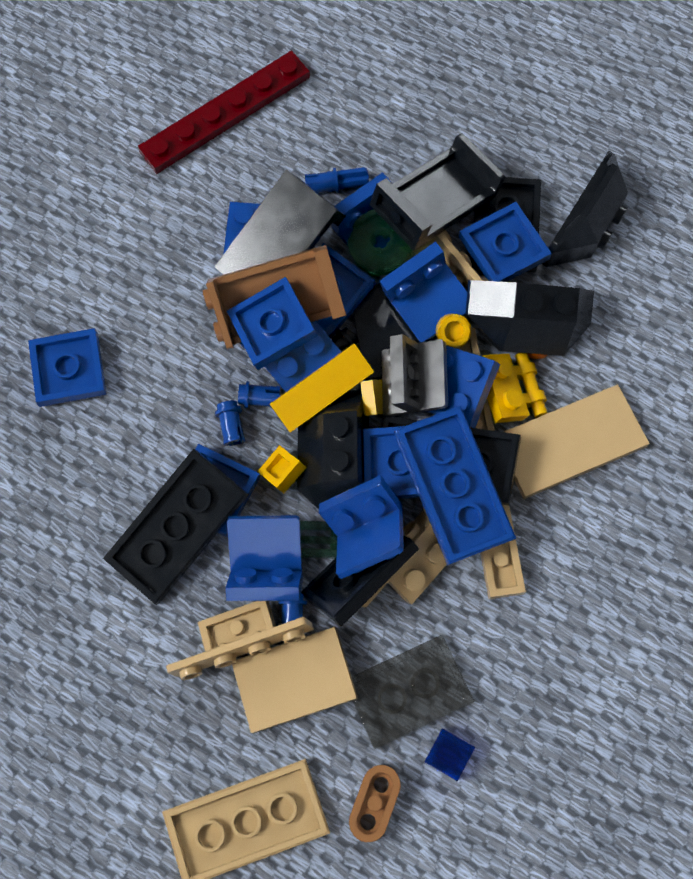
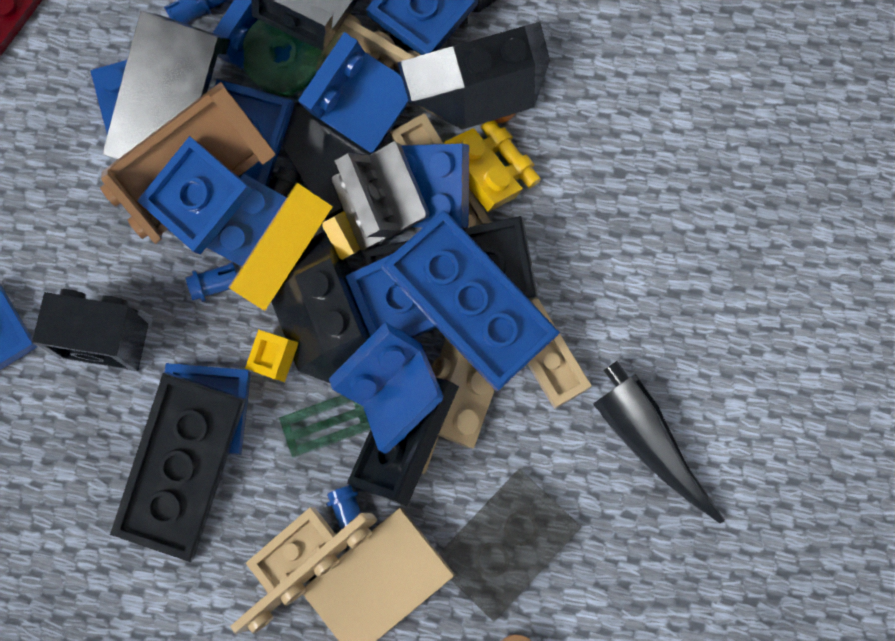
camera: 20 degrees left, 5 degrees up
(152, 396) = (91, 330): none -> black brick
(230, 422) = (192, 324): blue pin -> none
(264, 558) = (292, 463): blue bracket -> none
(449, 754) = (576, 595): clear blue plate -> none
(453, 330) = (402, 125): yellow tile -> none
(555, 644) = (641, 426): none -> black piece
(576, 440) = (582, 197): tan tile -> none

